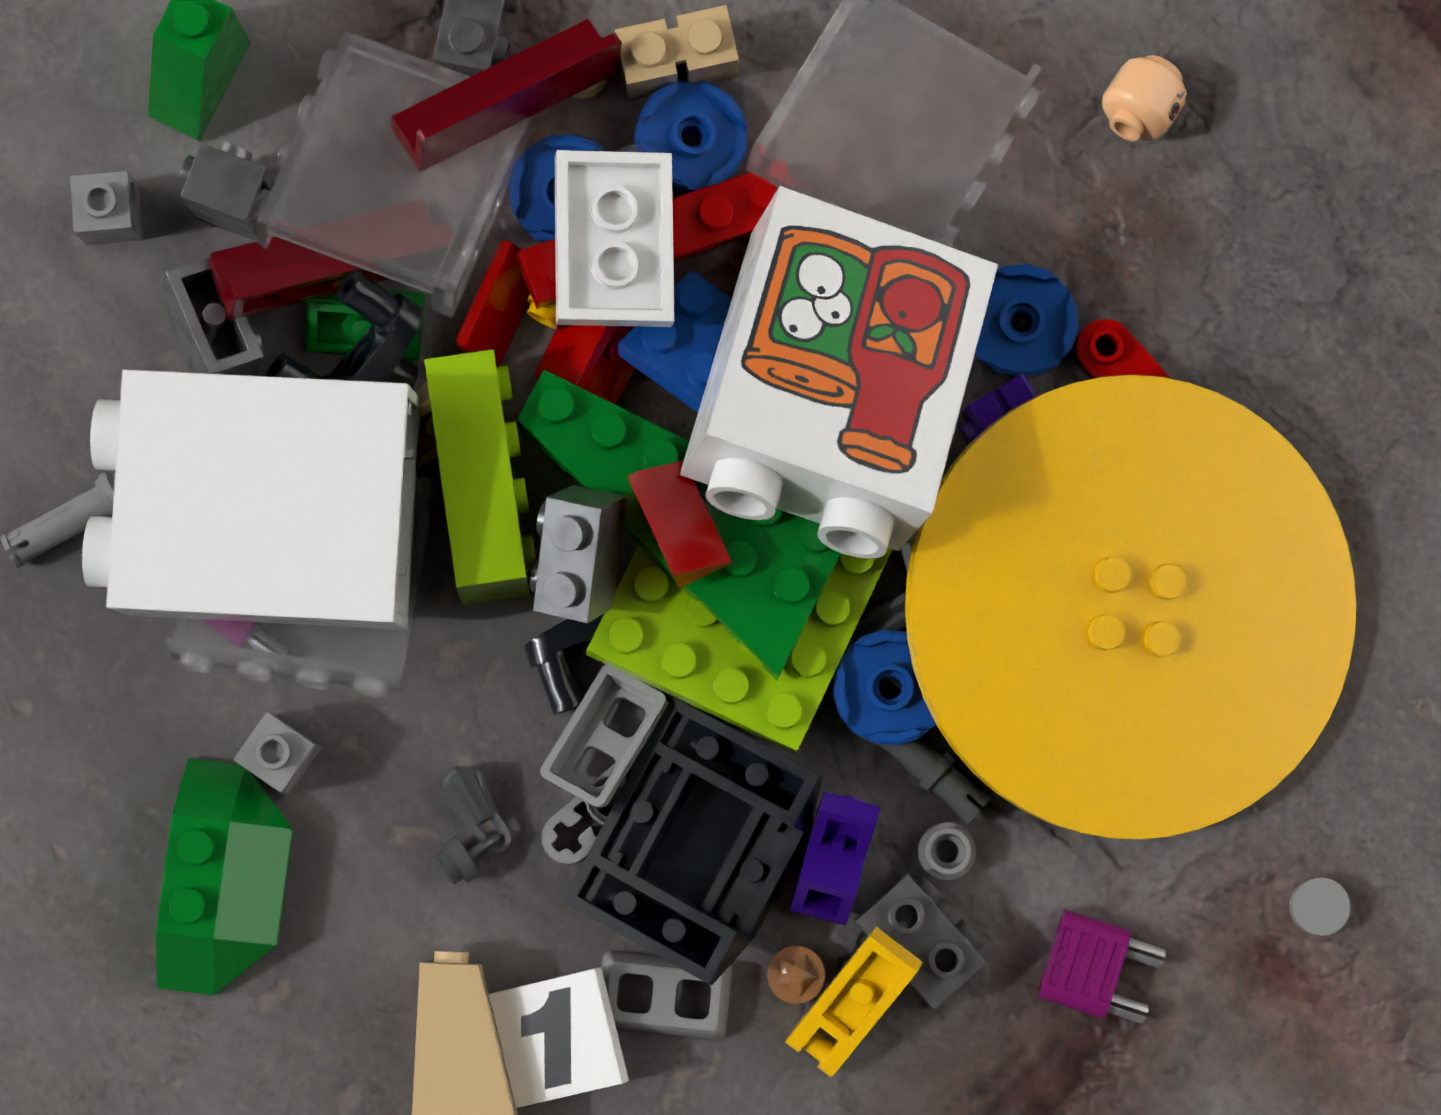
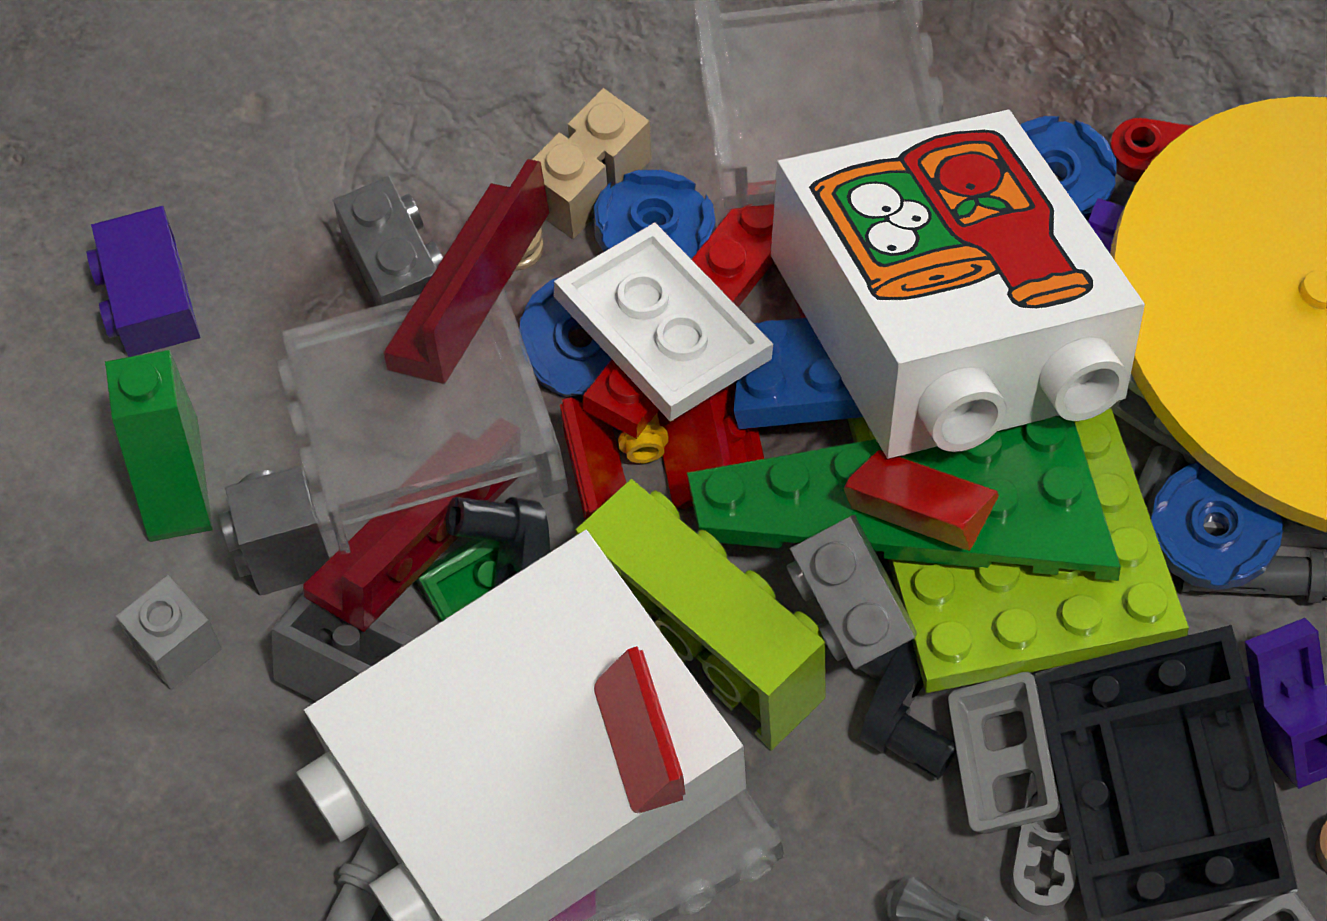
camera: 30 degrees left, 20 degrees down
(326, 564) = (639, 733): none -> red slope

